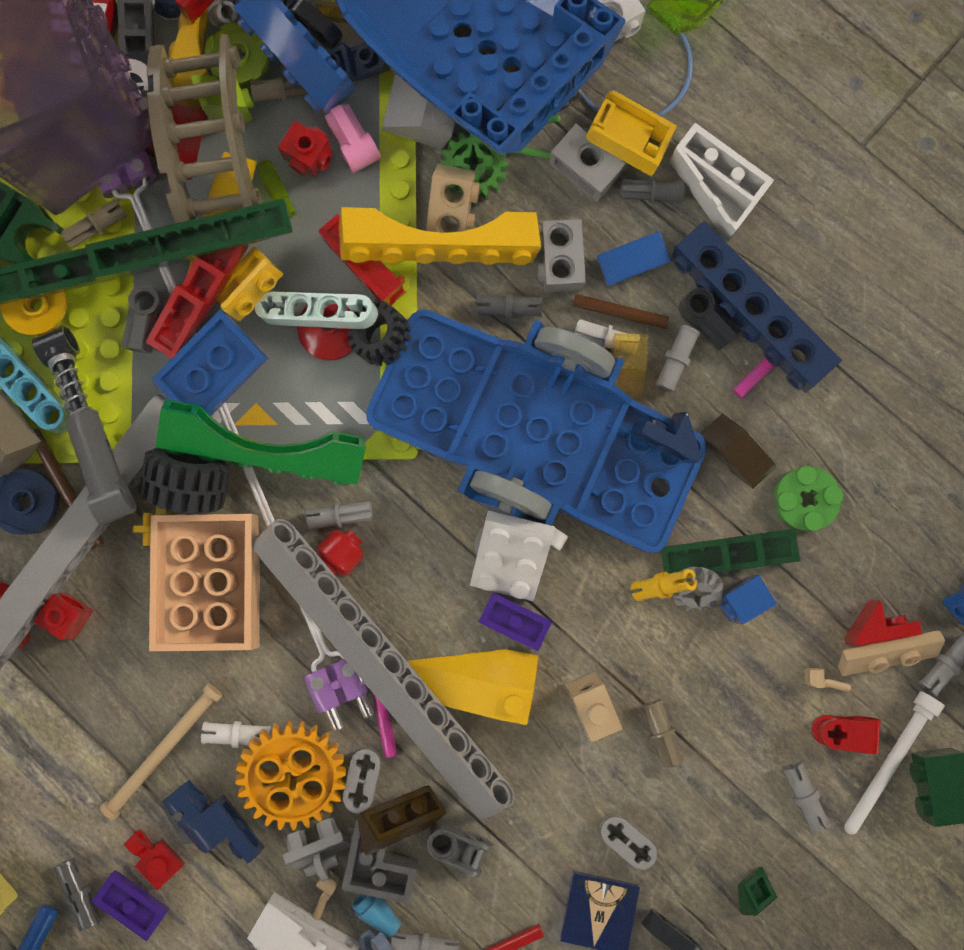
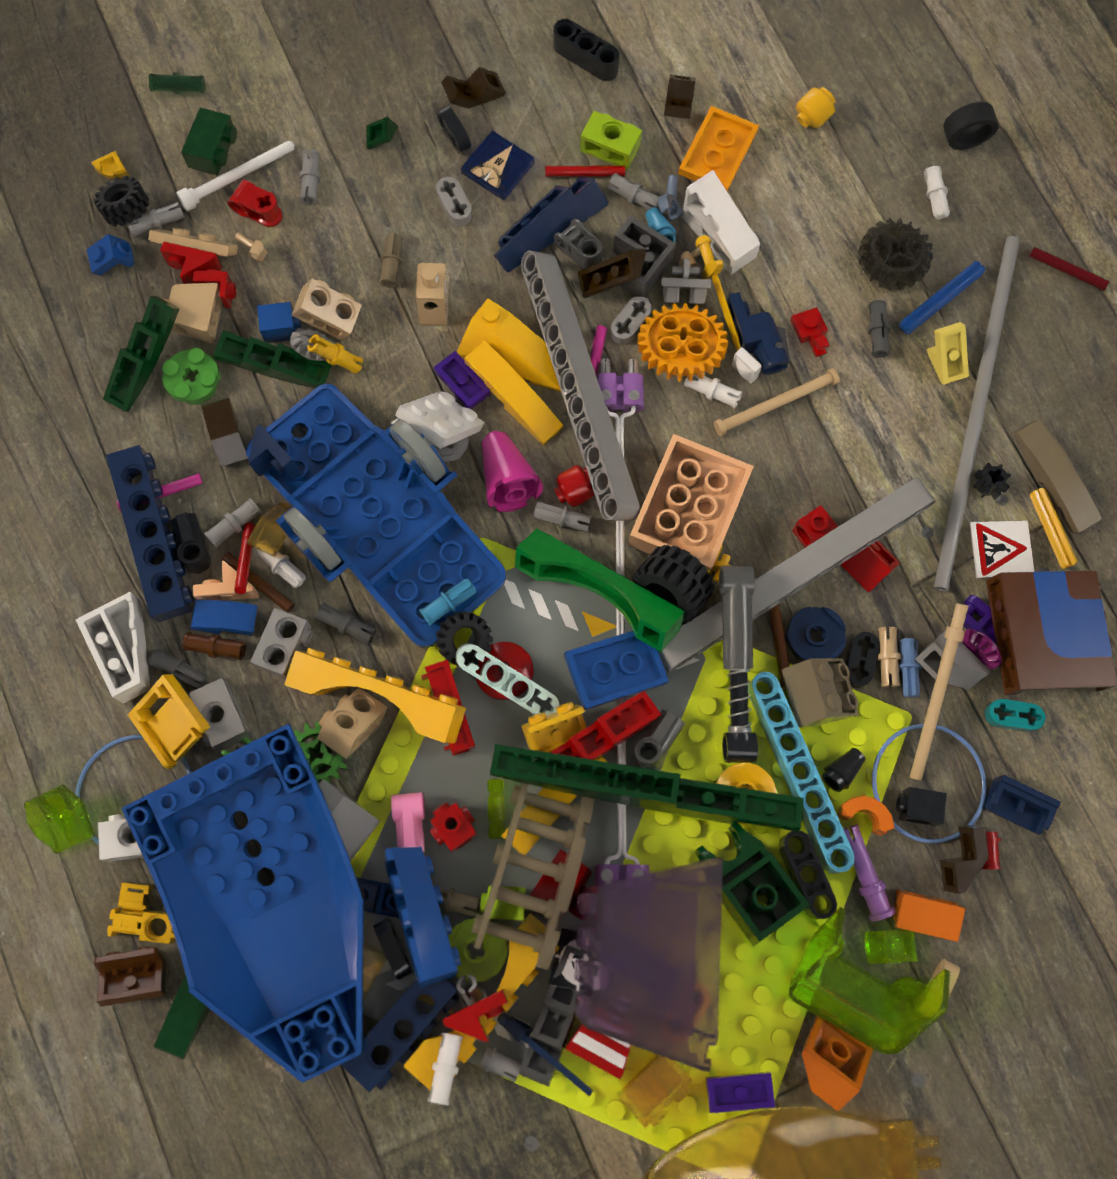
camera: 155 degrees left, 10 degrees down
(93, 224) = (667, 844): dark tan axle -> none
(130, 905) = (840, 305): dark purple plate -> none
(209, 778) = (746, 365): none -> white tile
(292, 880) = (711, 270): none -> yellow sword
(410, 360) = (448, 601): none -> dark azure axle
(418, 535) = (507, 474): none -> dark pink cone
(452, 630) = (514, 393): none -> yellow slope
(508, 865) = (547, 218): none -> dark blue wedge
(628, 227) = (214, 646): none -> reddish brown pin
(641, 293) = (223, 591): none -> light nougat slope
(641, 319) = (244, 561): none -> red bar
(698, 628) = (325, 316): none -> tan brick
(844, 616) = (227, 287): none -> red bracket
(847, 572) = (198, 310): none -> tan torso
(872, 496) = (141, 355): none -> dark green slope

